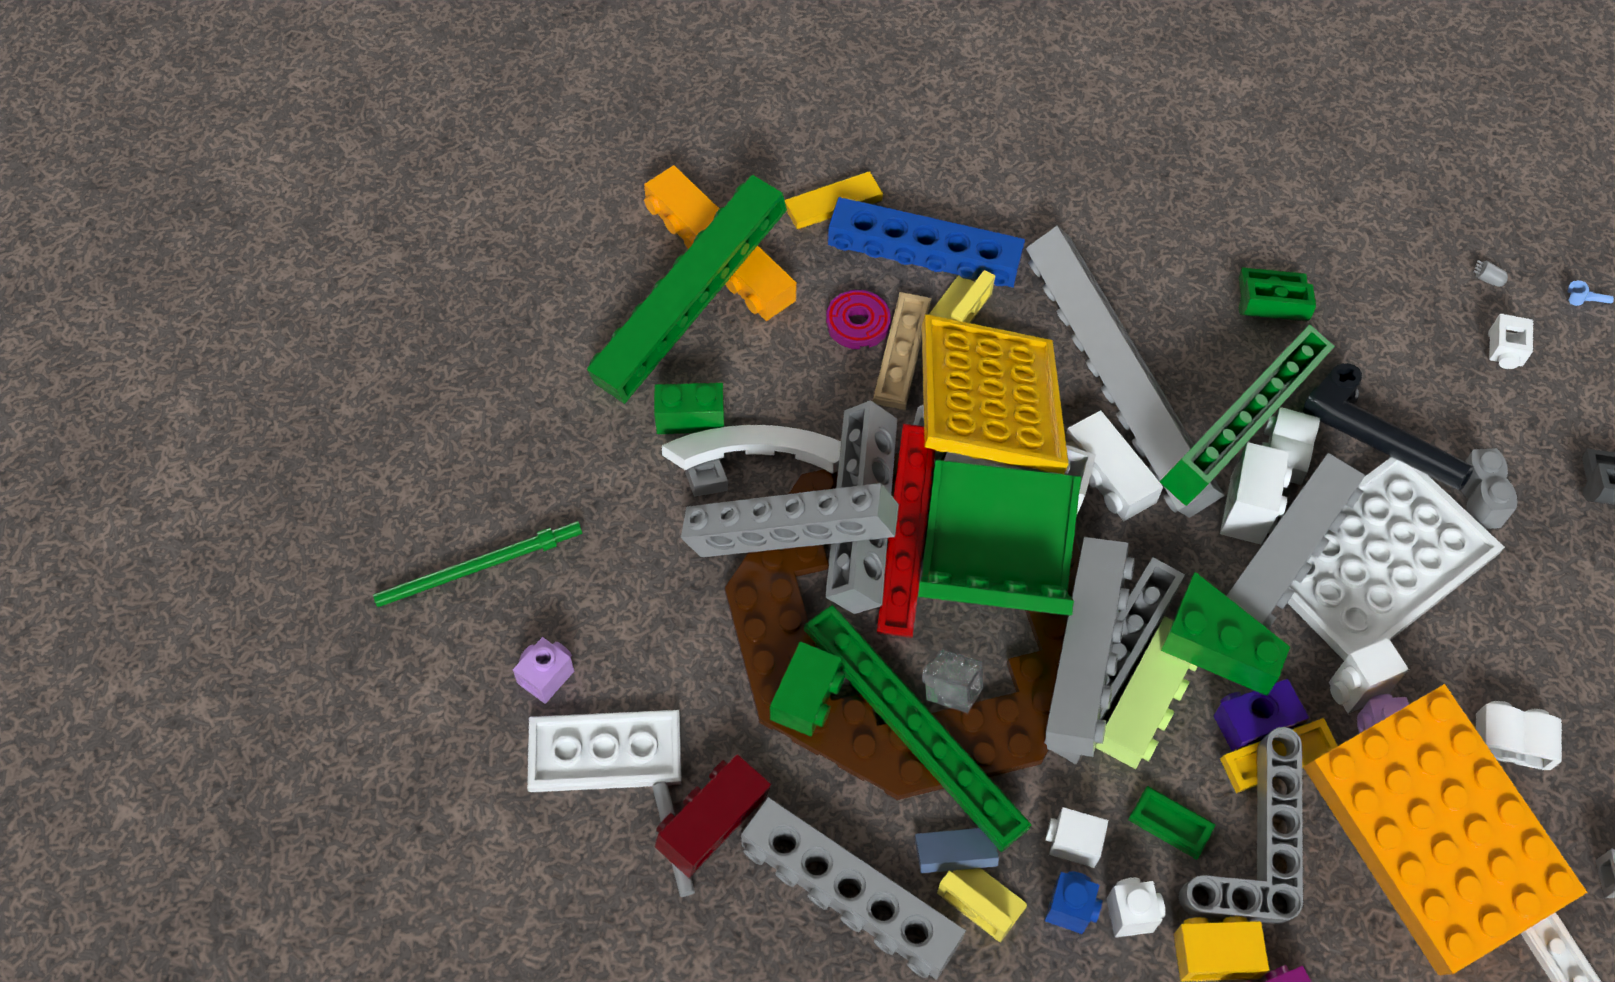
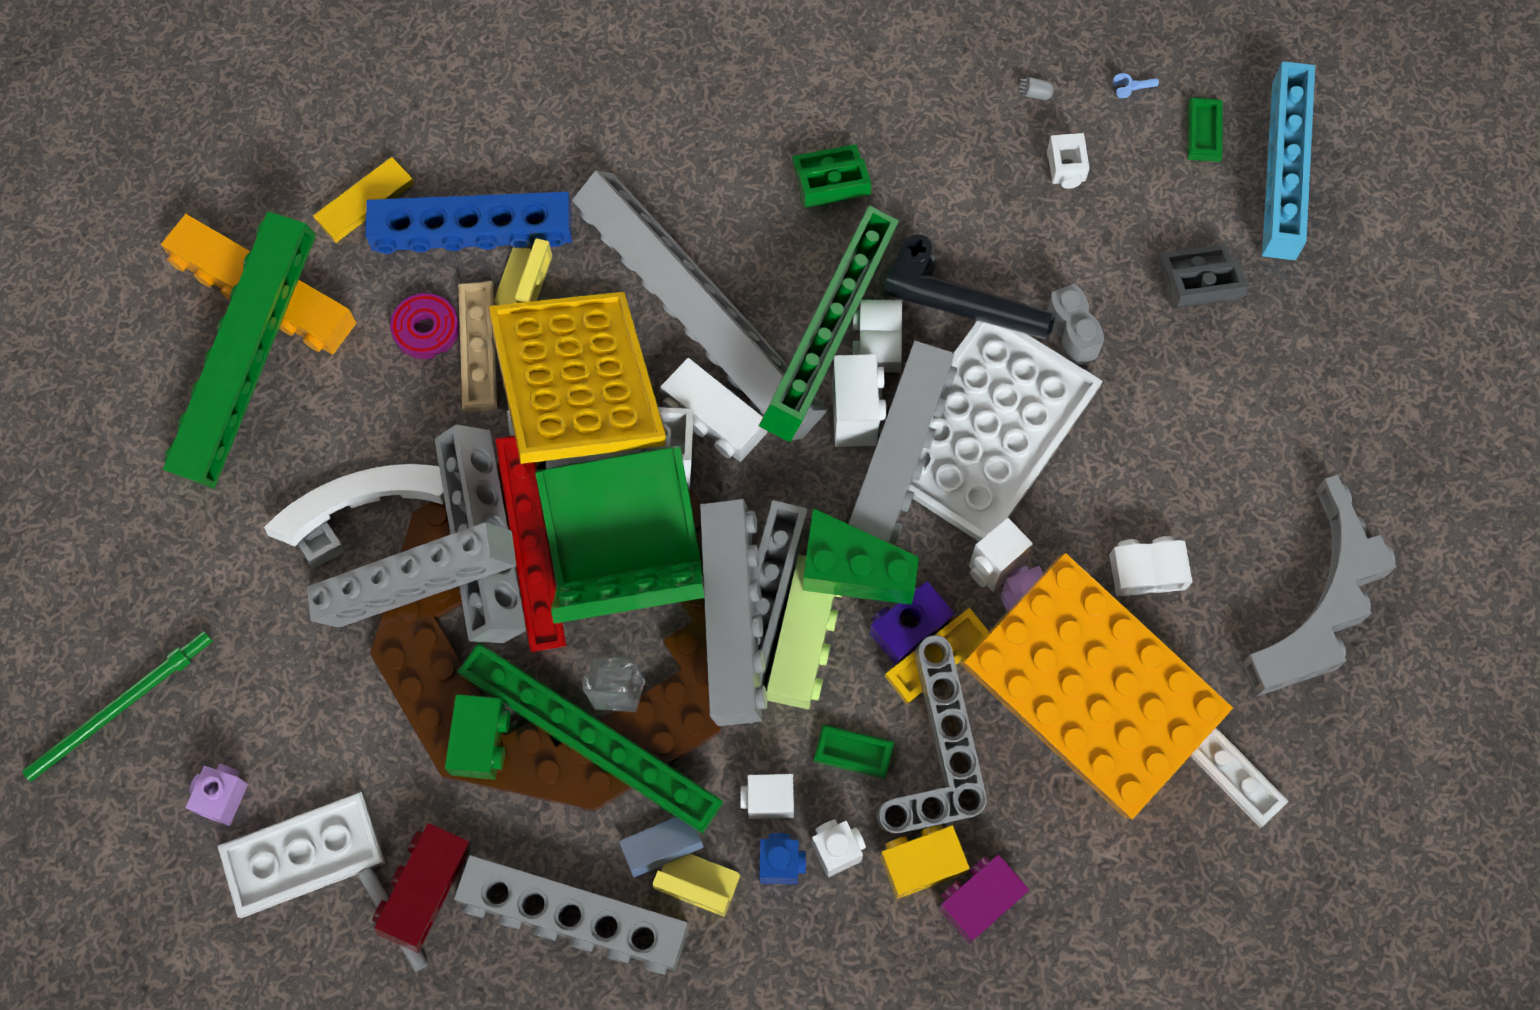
camera: 15 degrees left, 10 degrees up
(688, 407) = (279, 477): green brick -> none

